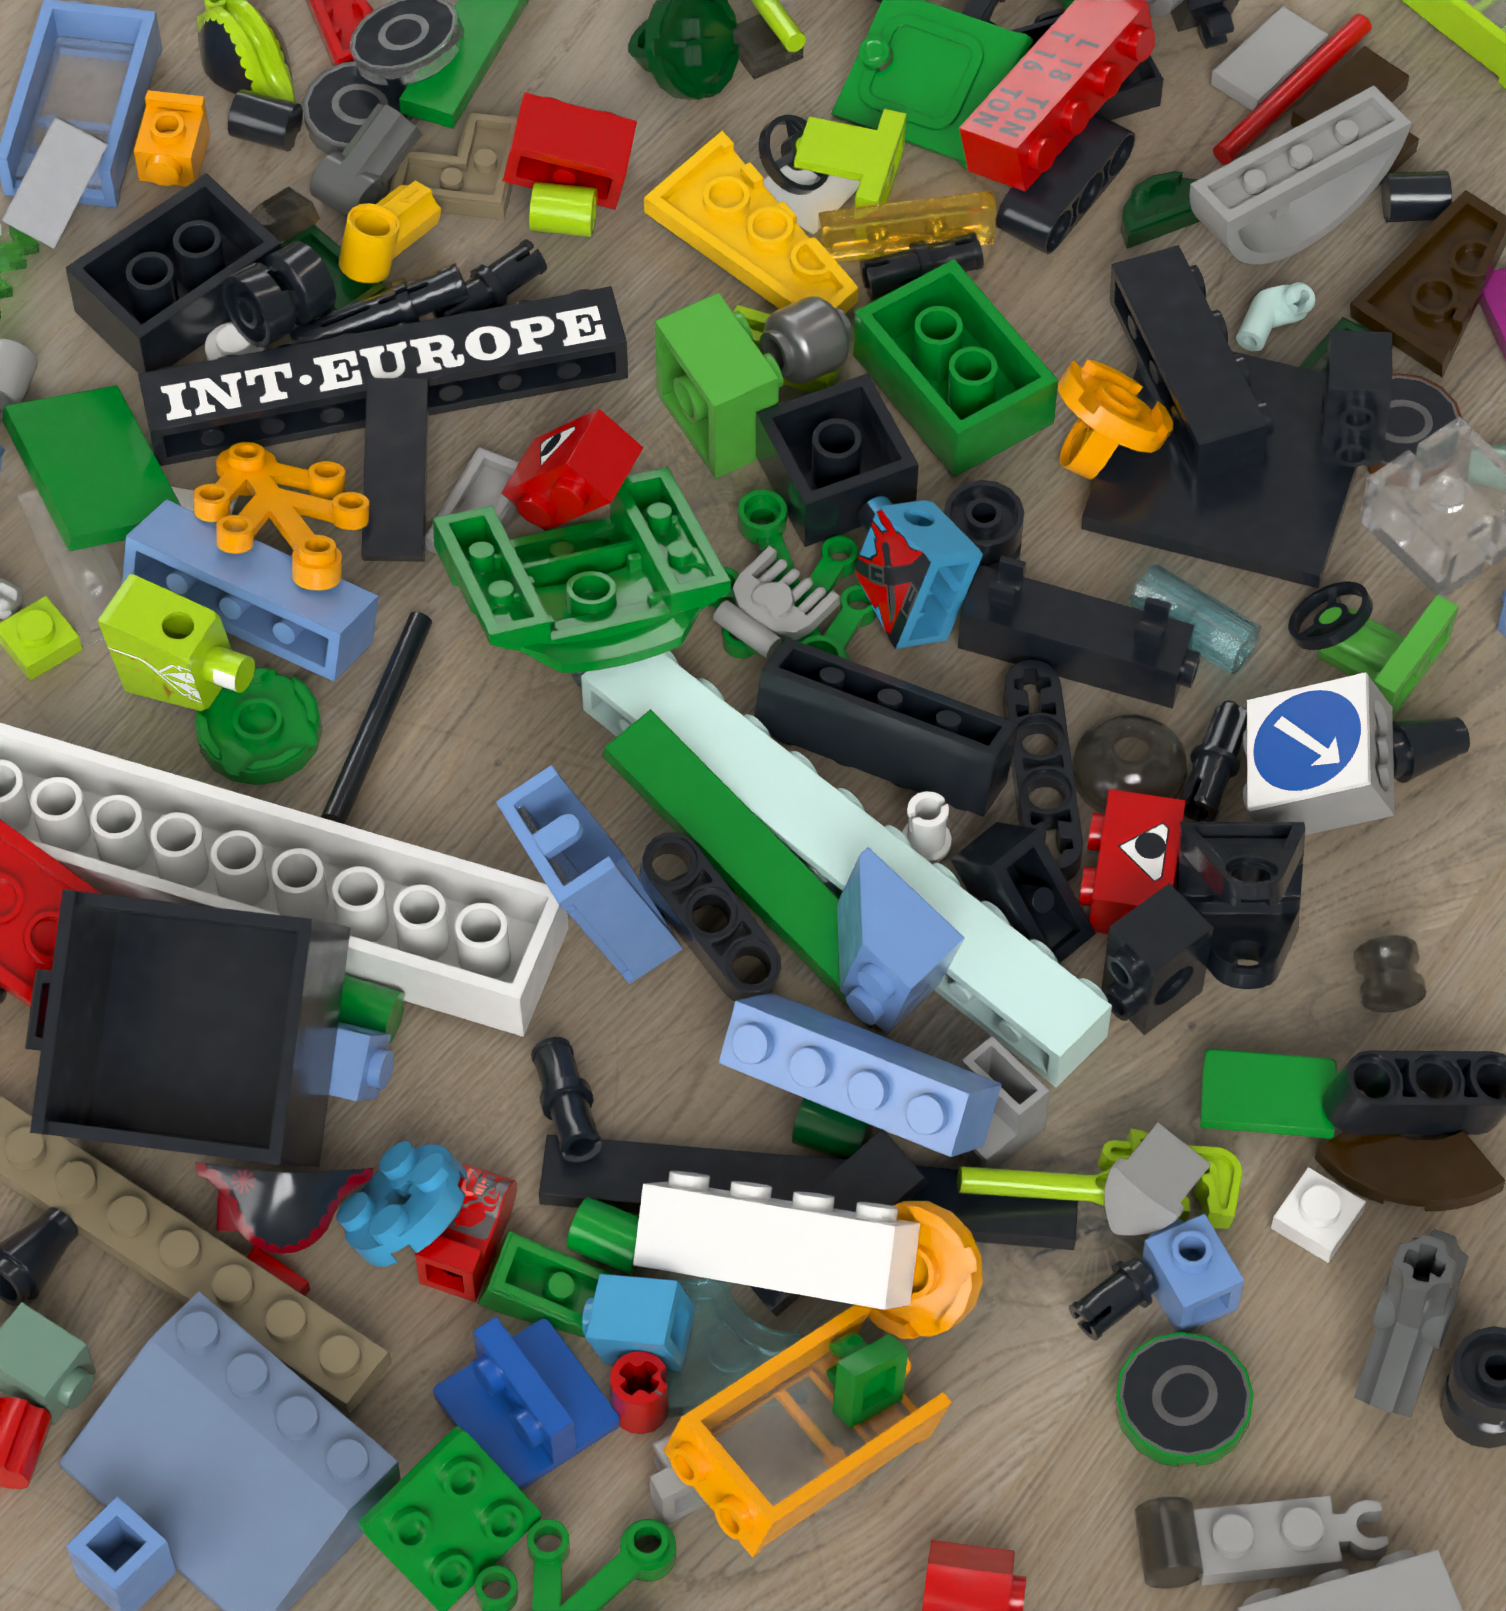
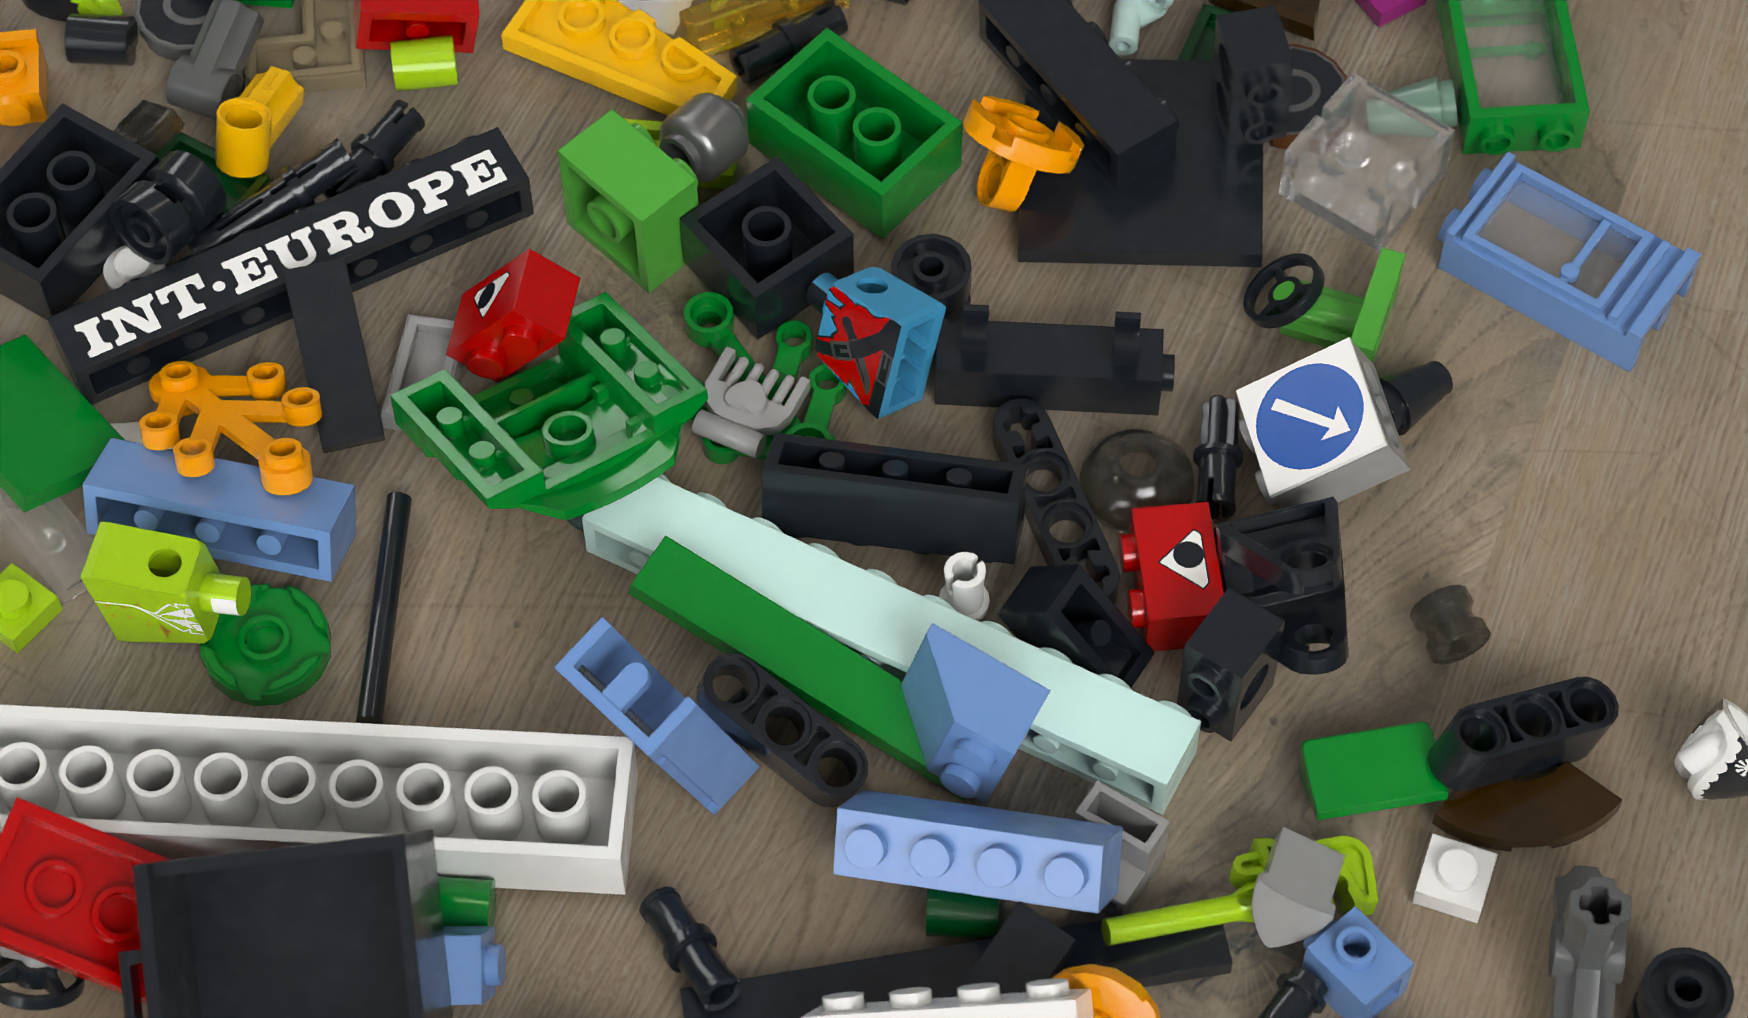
camera: 15 degrees left, 0 degrees up
(1219, 631) = (1187, 329): clear light blue axle -> none

